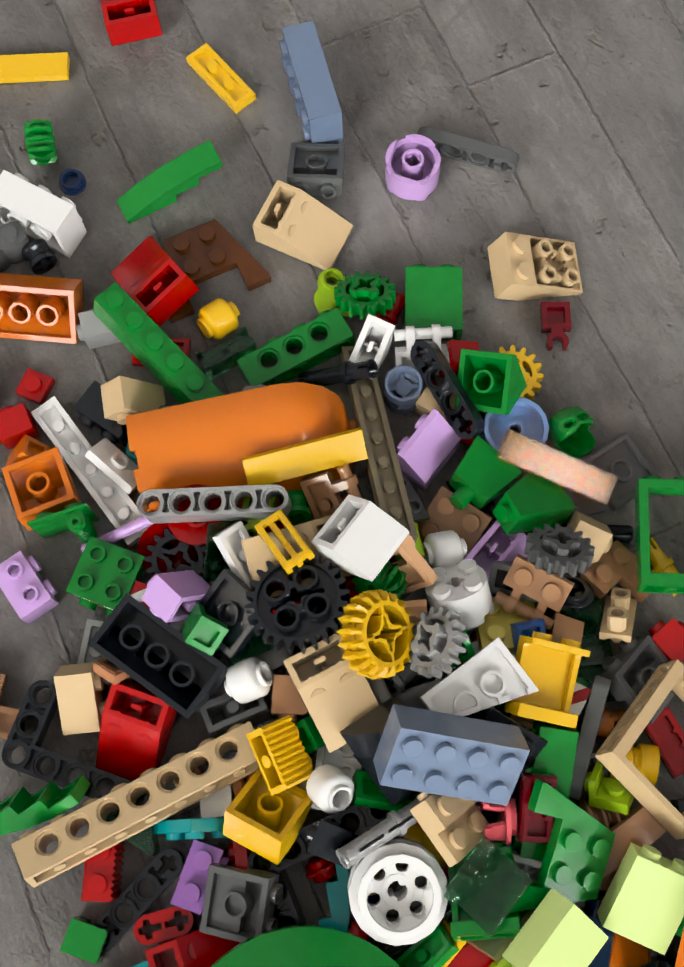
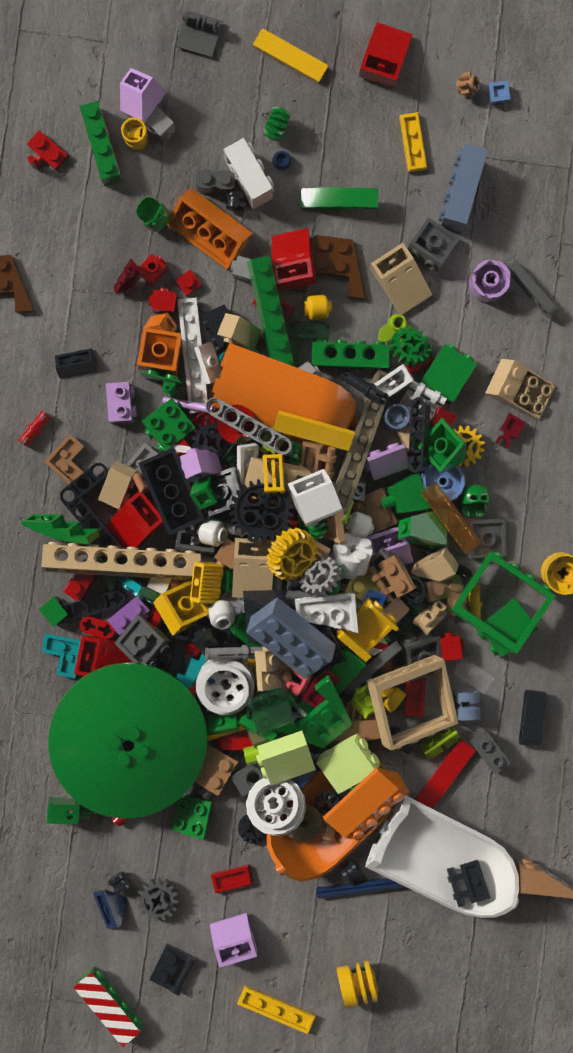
camera: 25 degrees right, 15 degrees up
(559, 550) = (418, 565): dark grey gear -> none

